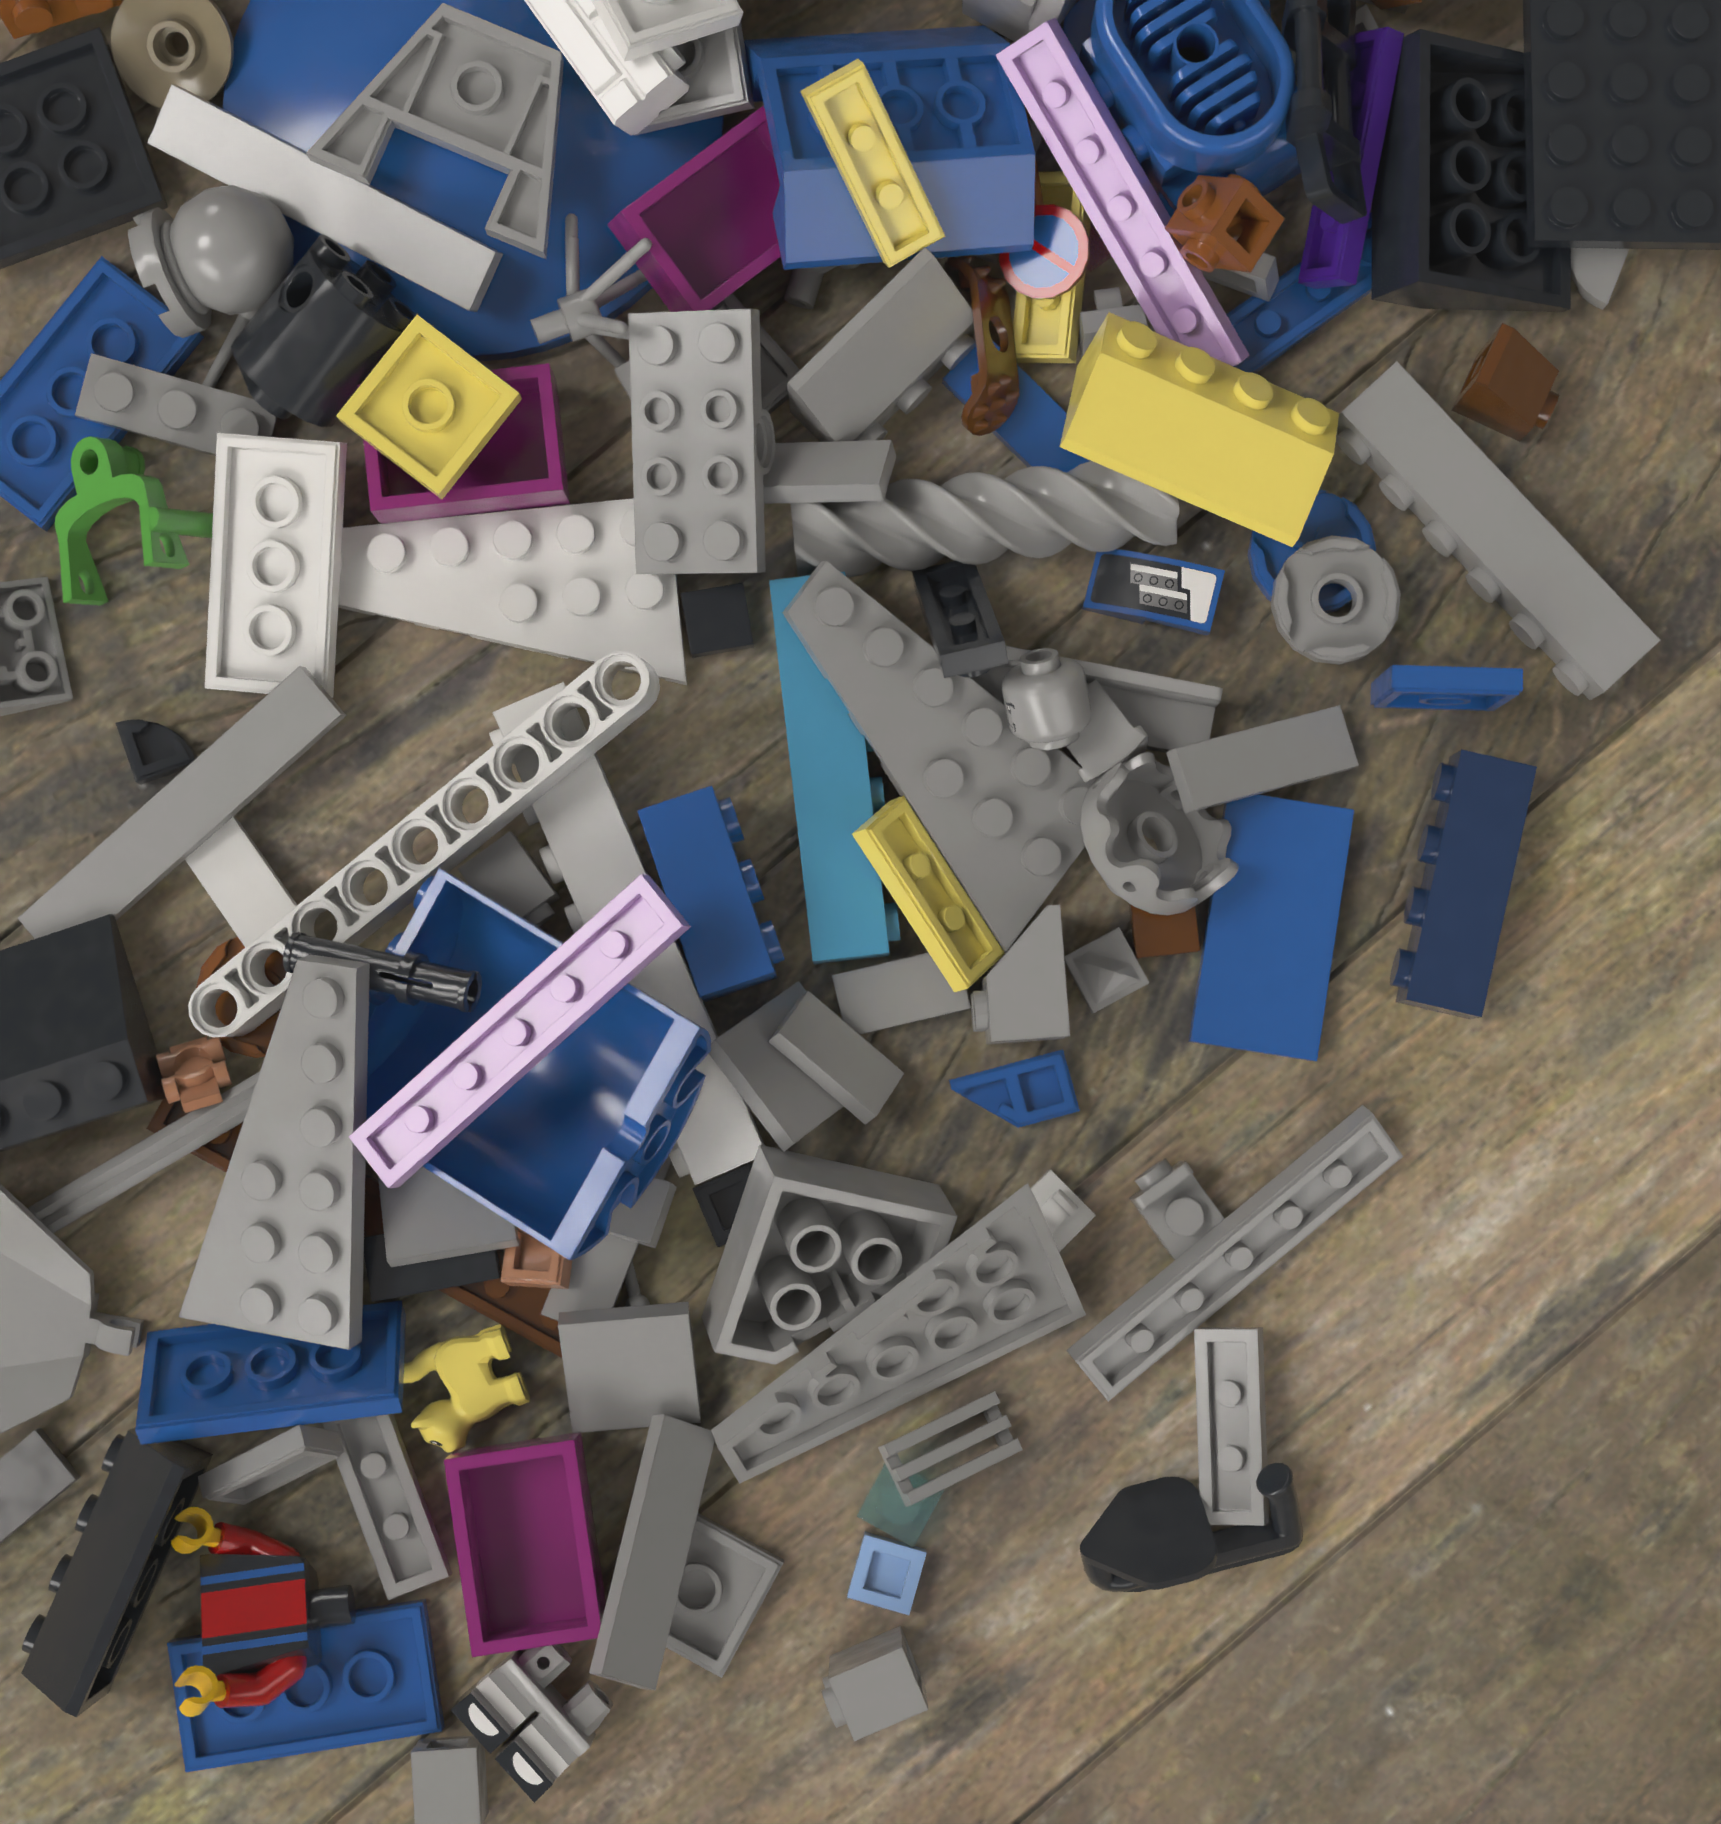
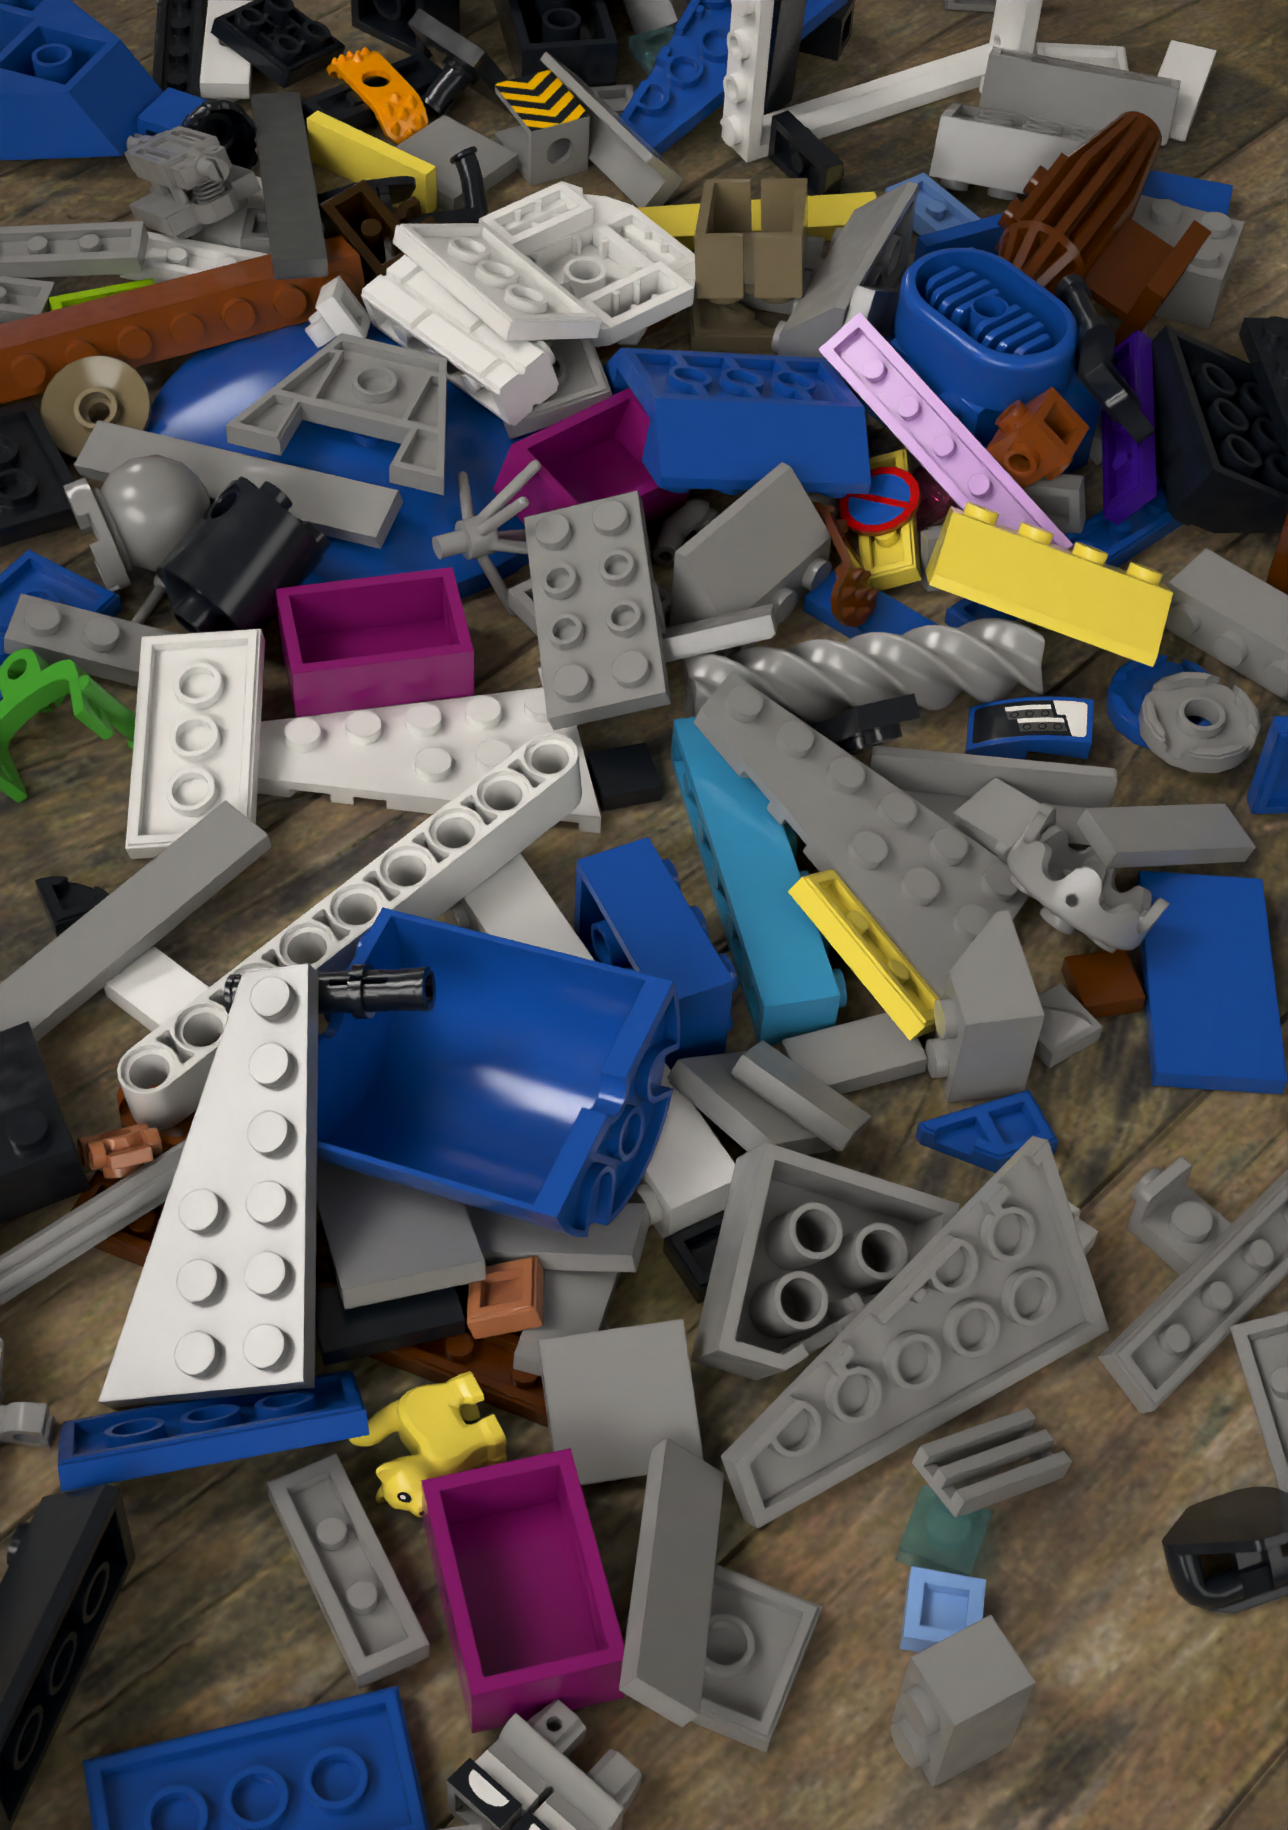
camera: 10 degrees left, 35 degrees down
(256, 1613) = (198, 1688): torso -> none
(271, 1465) = (211, 1527): light grey tile -> none
(429, 407) = (346, 587): light yellow plate -> none
(519, 1031) = (478, 1012): plate -> none
(872, 162) = (730, 394): light yellow tile -> none
(1046, 699) = (956, 773): light grey head -> none

